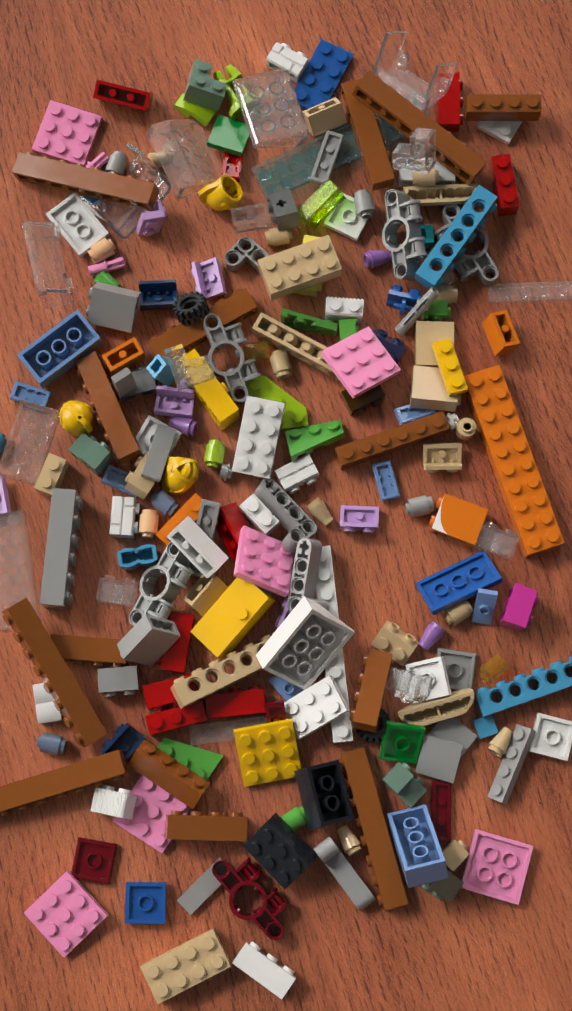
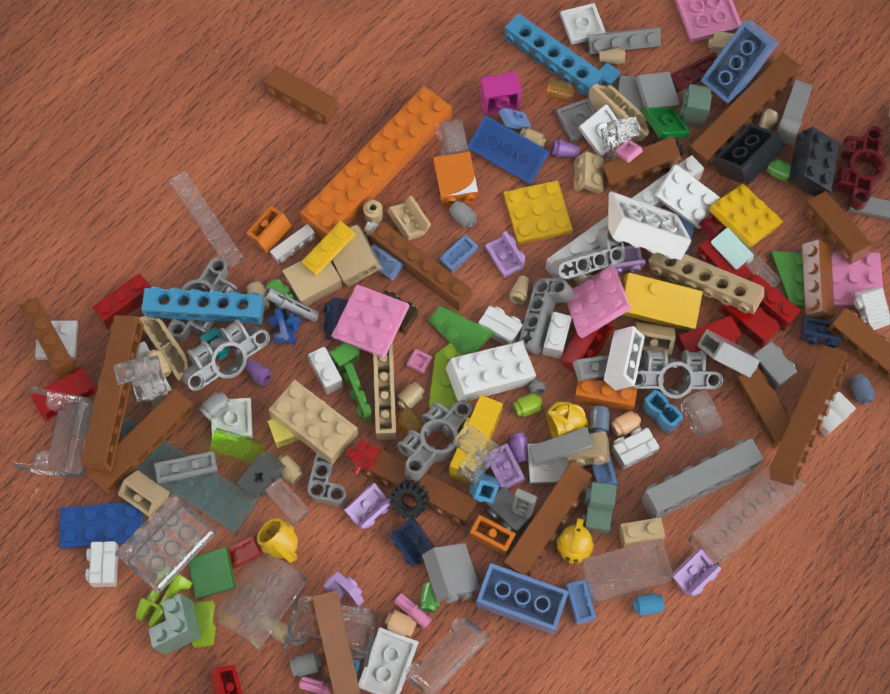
camera: 125 degrees left, 10 degrees down
(241, 714) = (732, 249): none -> light aqua panel
(247, 291) = (363, 456): none -> red piece
(308, 392) = (419, 361): none -> bright pink tile
(385, 574) = (537, 212): none -> yellow plate
(387, 680) = (628, 150): none -> bright pink tile
(477, 348) = (292, 244): none -> white piece

